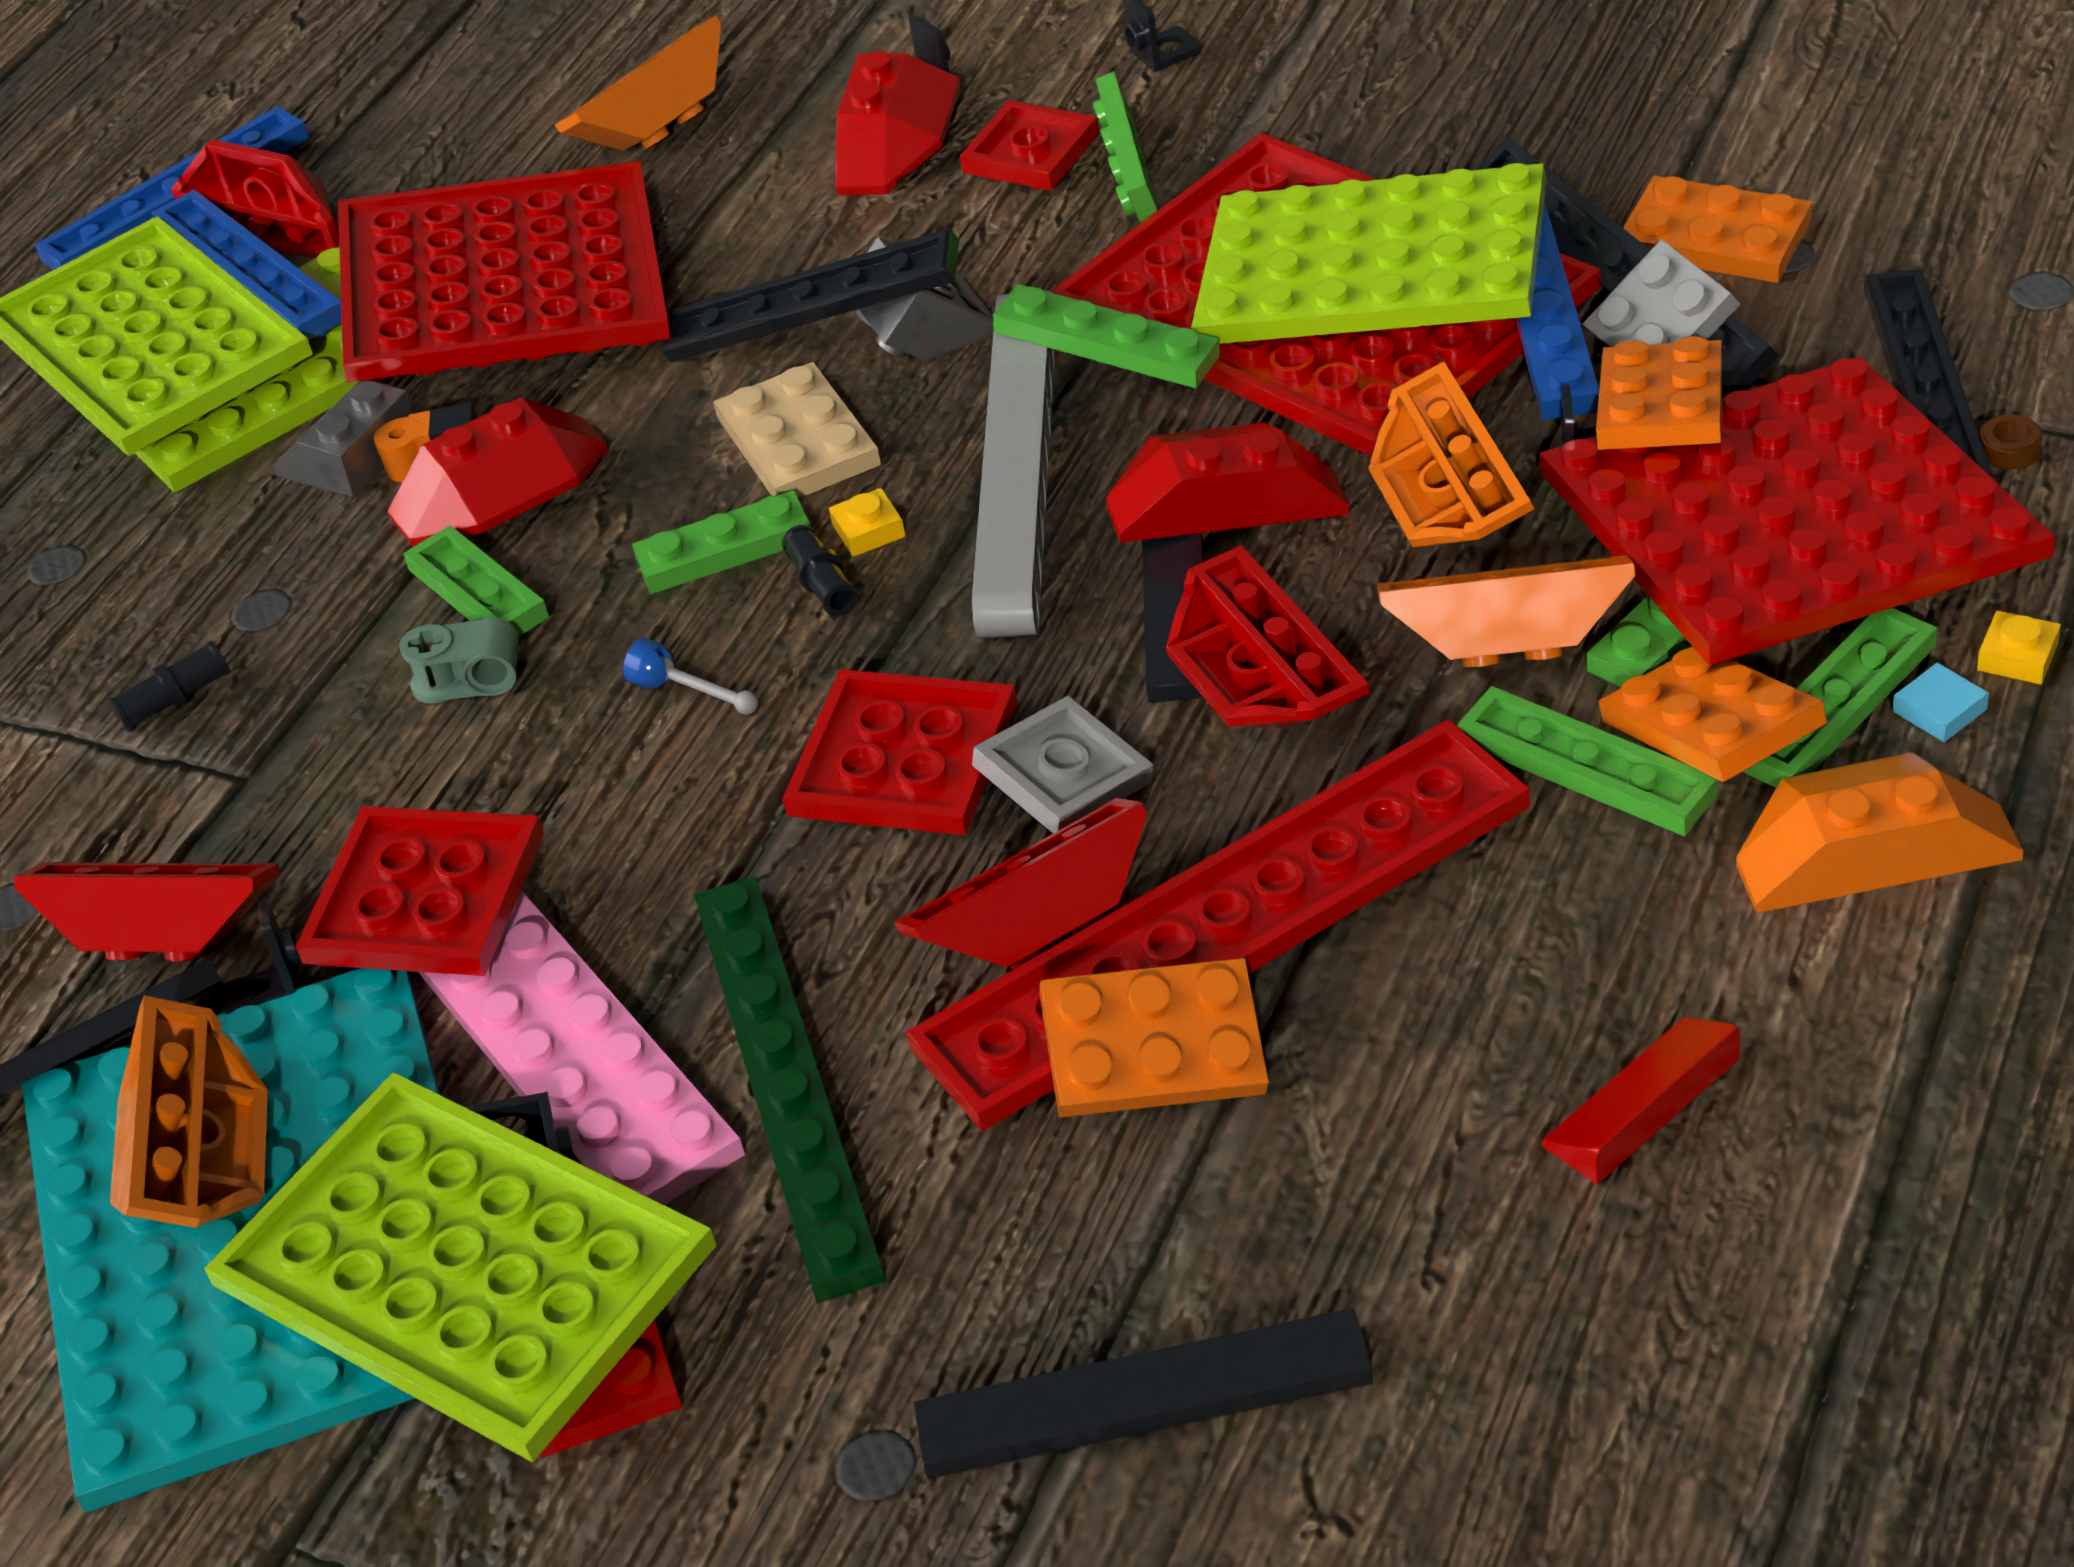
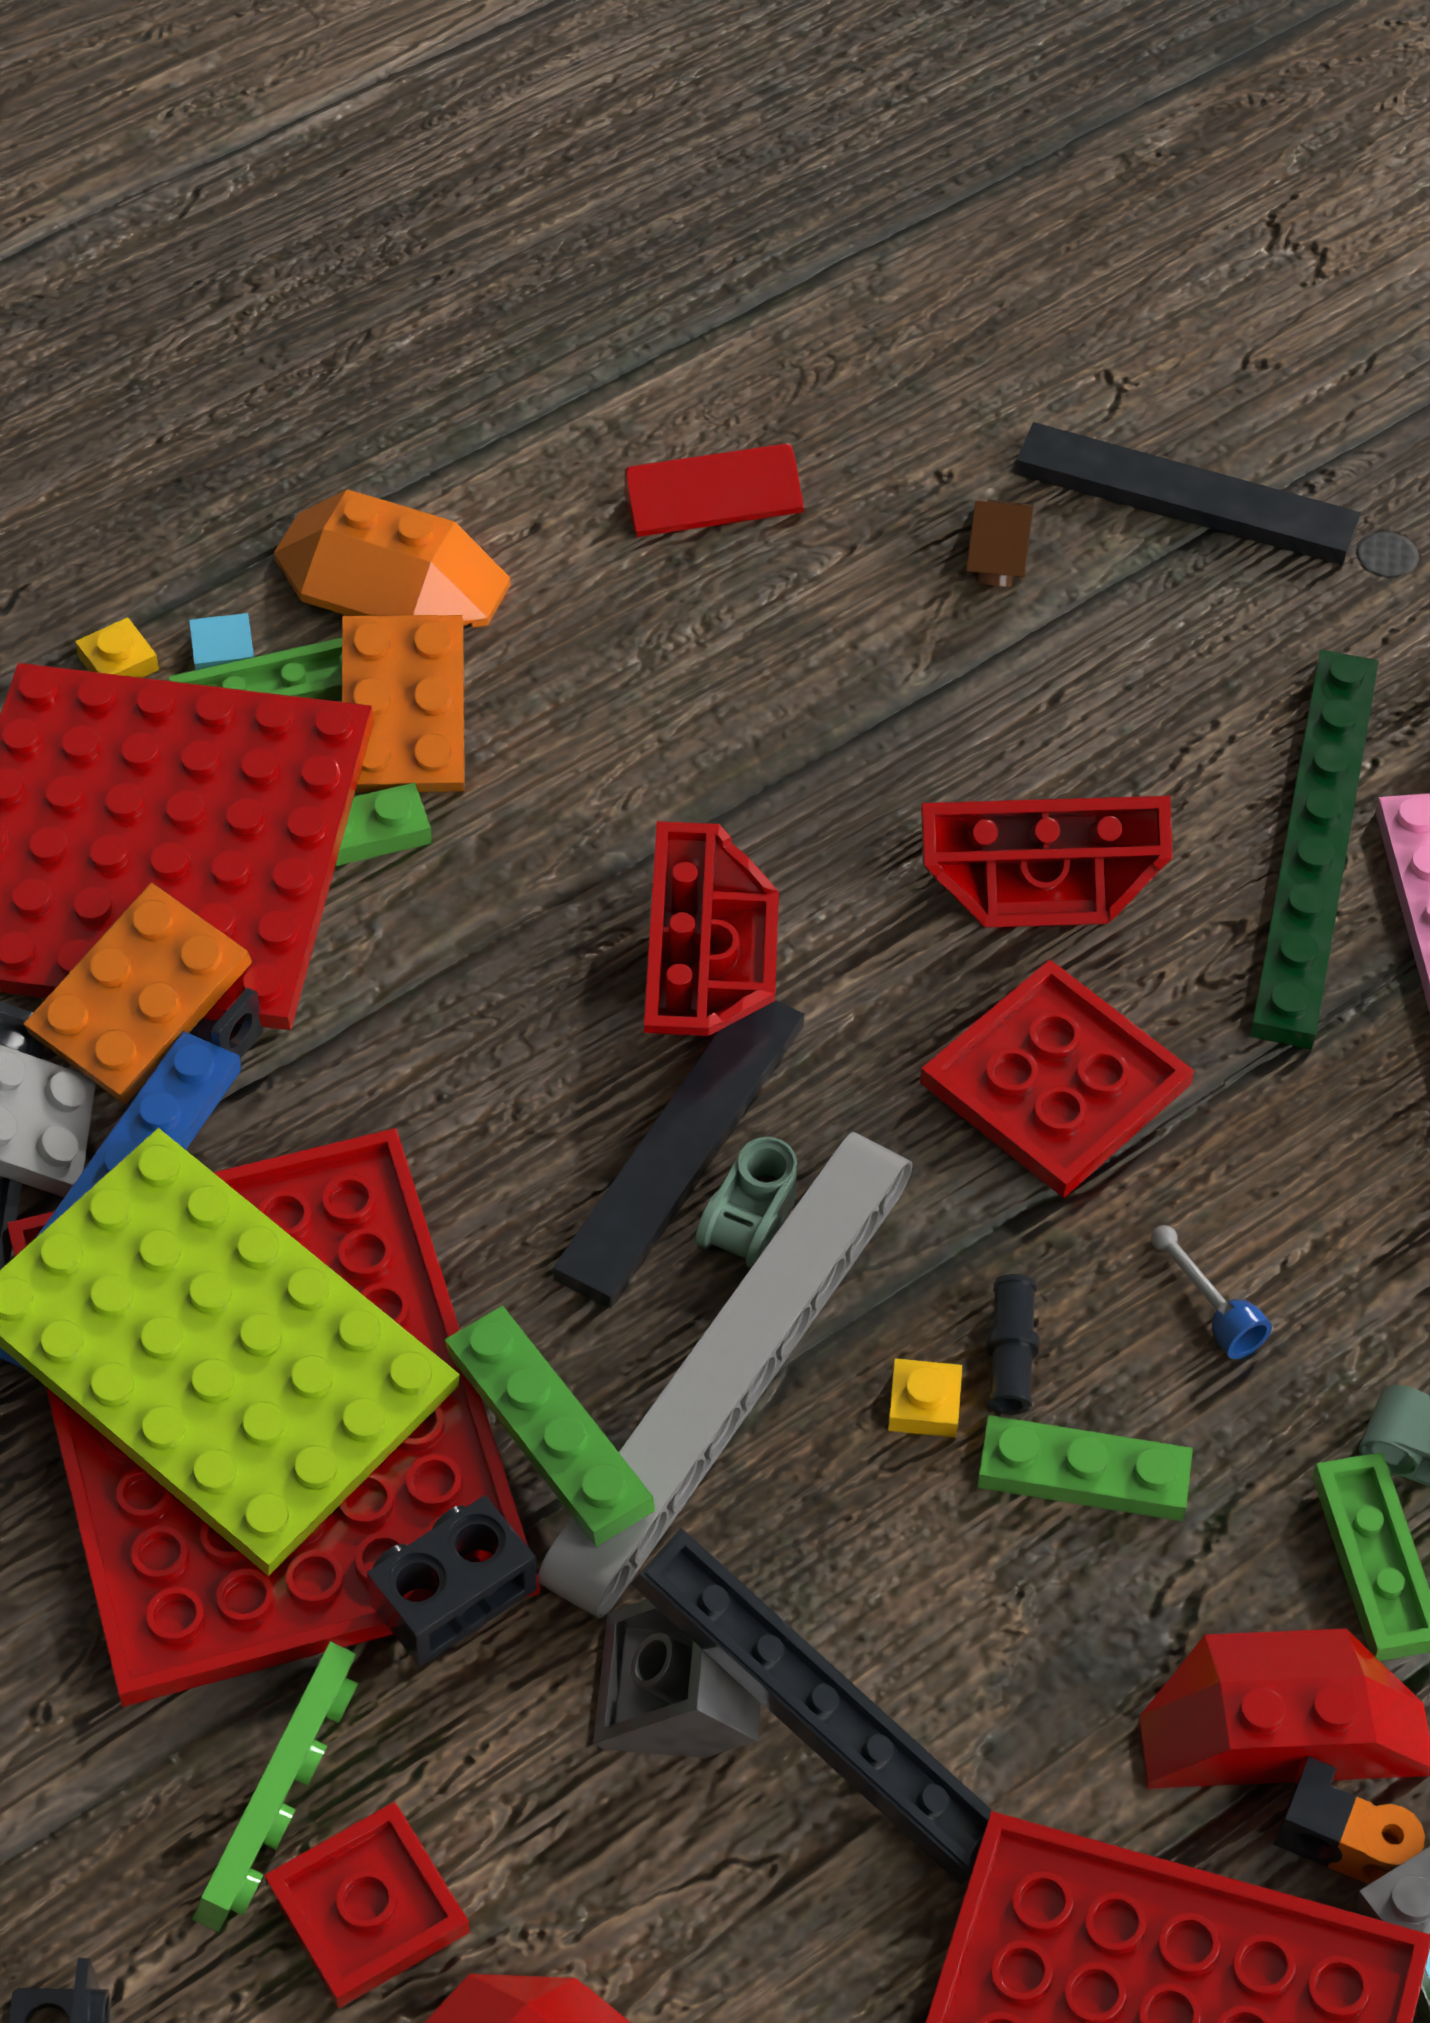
camera: 160 degrees left, 10 degrees up
(797, 432) = (925, 1586): tan plate -> none
(1061, 764) = (934, 960): light grey plate -> none
(1080, 550) = (748, 1211): none -> sand green piece
(1095, 237) = (464, 1590): none -> black brick
(1152, 1037) = (1026, 684): orange plate -> none
(1221, 483) = (581, 1170): red wedge -> none
(1233, 905) = (887, 764): red plate -> none
(1303, 1200) = (999, 541): none -> reddish brown slope
(1443, 465) = (388, 1032): orange wedge -> none
(1509, 609) = (451, 890): orange wedge -> none
(1590, 761) = (524, 742): bright green plate -> none

